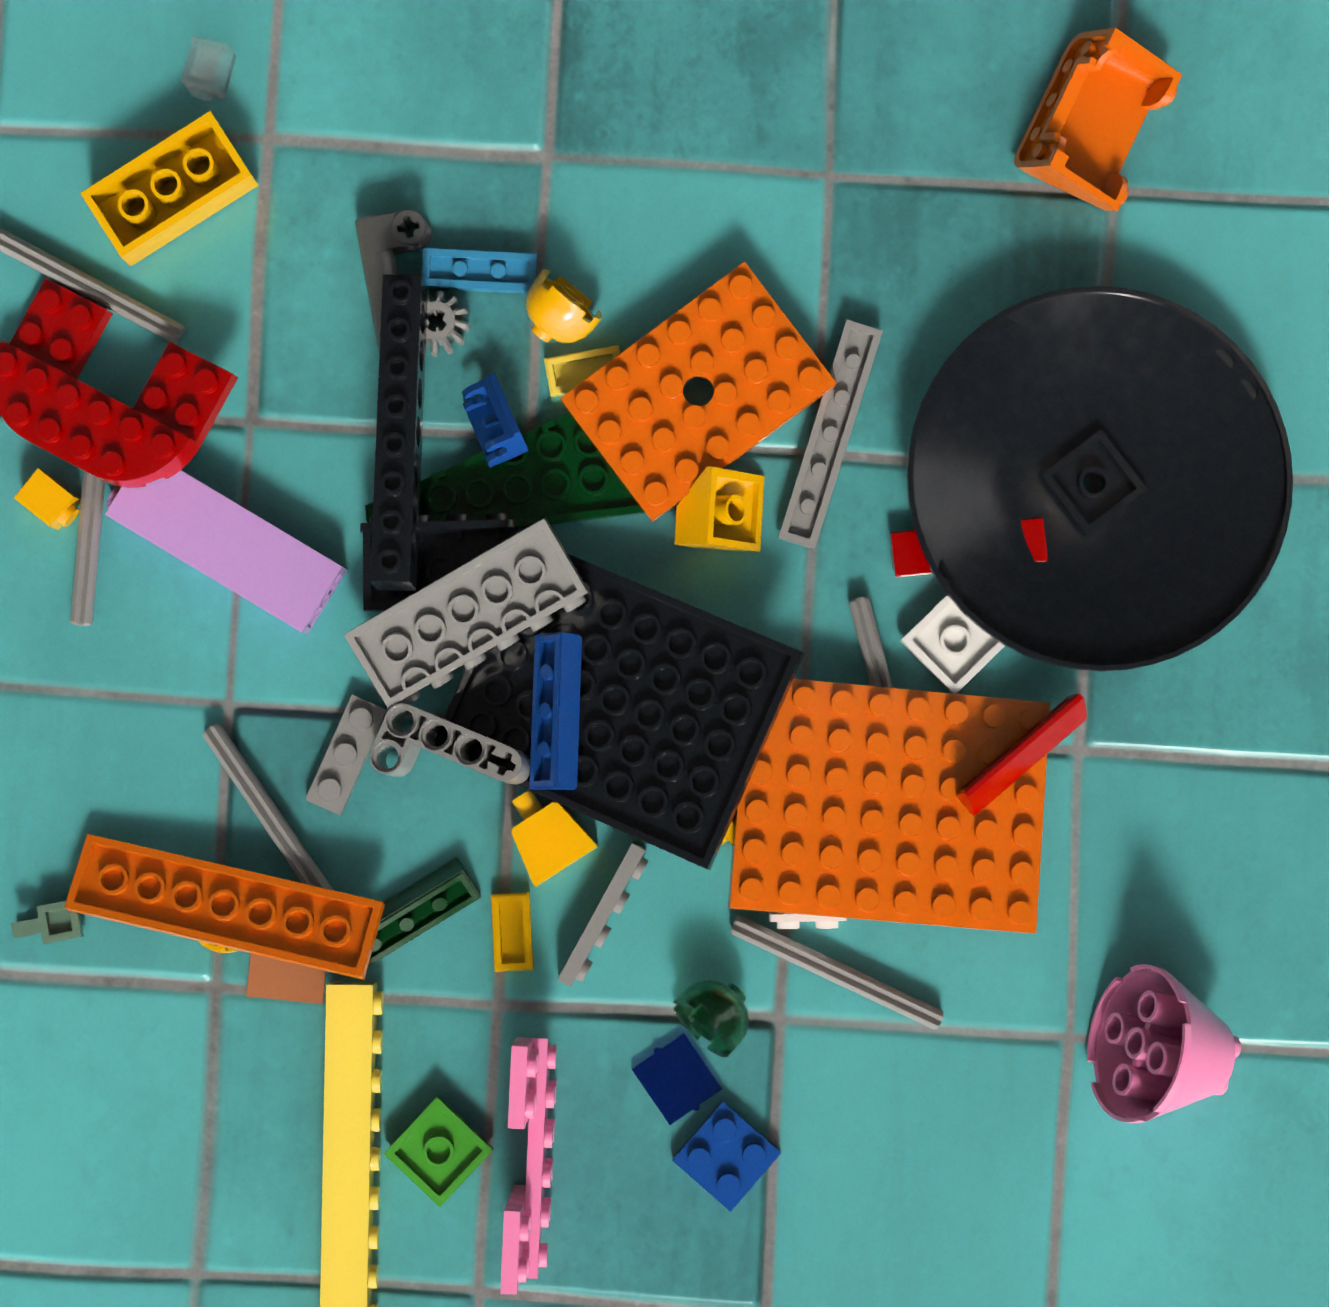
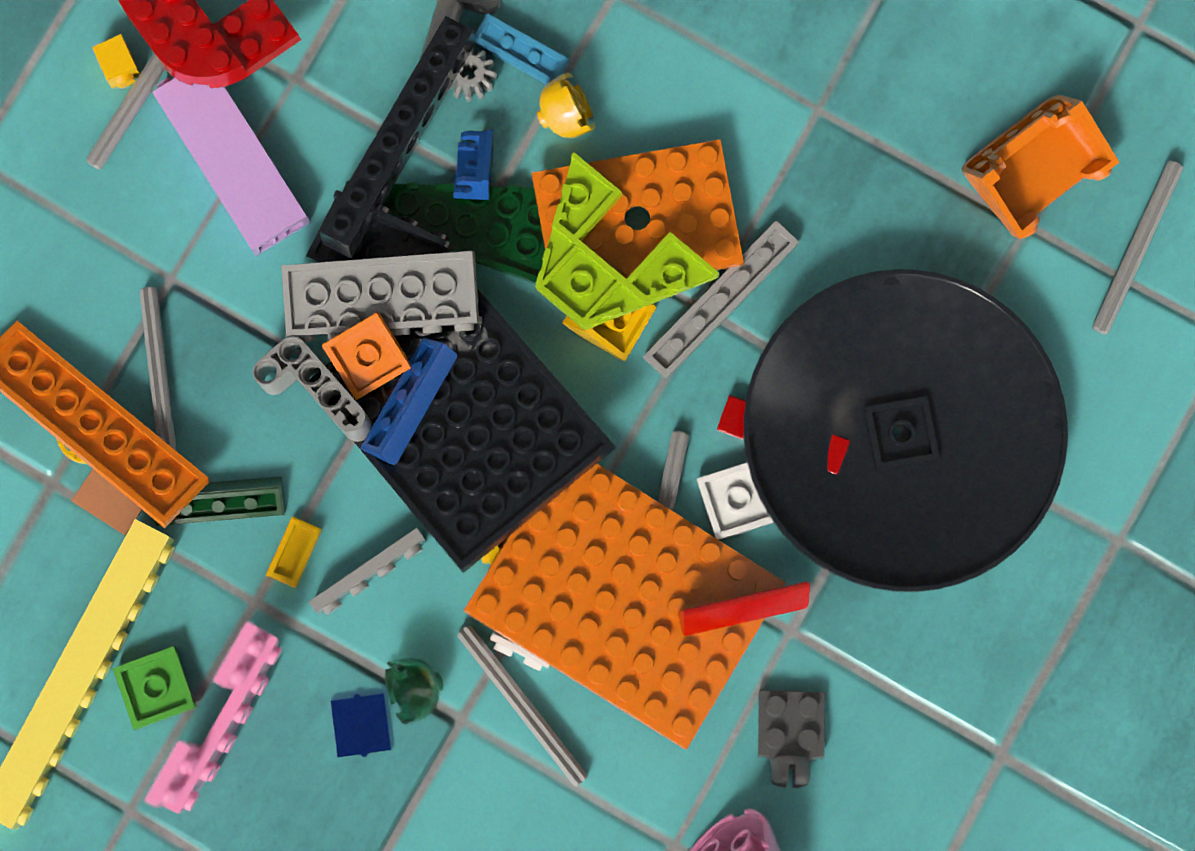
camera: 25 degrees right, 5 degrees down
(346, 755) = (237, 359): light grey plate -> none
(485, 686) = (366, 355): none -> orange plate
(548, 837) = (356, 494): yellow torso -> none
(571, 369) = (551, 156): light yellow tile -> none
(683, 492) = (586, 284): none -> lime wing
(726, 1155) = (368, 802): blue plate -> none
(1135, 860) = (790, 733): none -> dark grey plate
(1243, 157) = (1137, 247): none -> light grey axle

